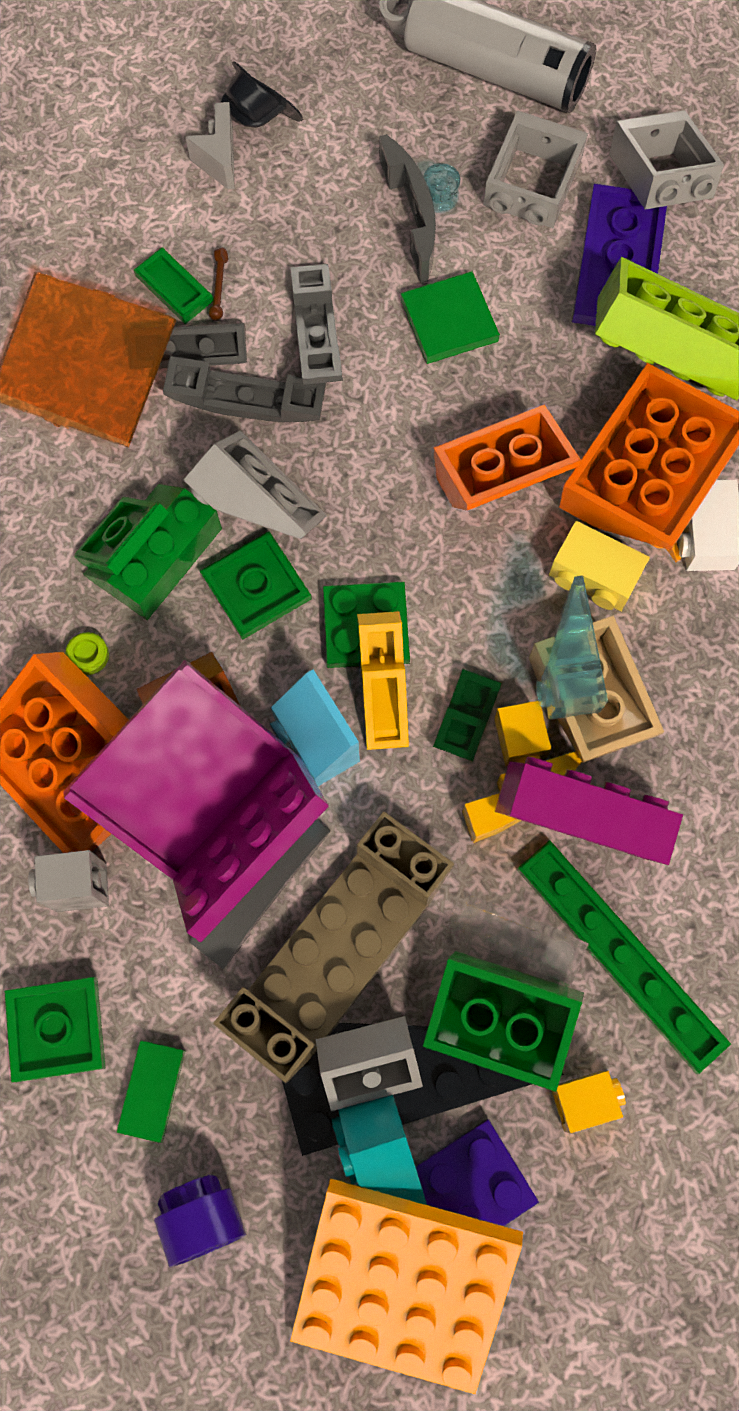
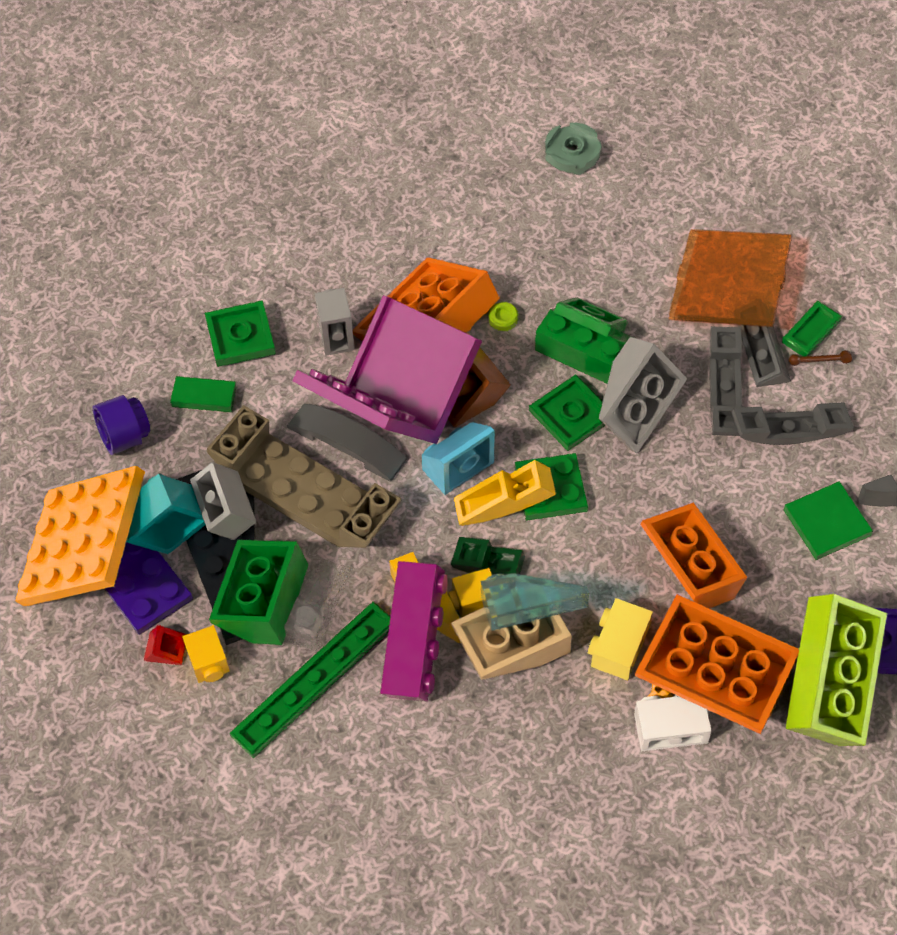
camera: 85 degrees right, 15 degrees down
(561, 1161) = (165, 646): none -> red slope

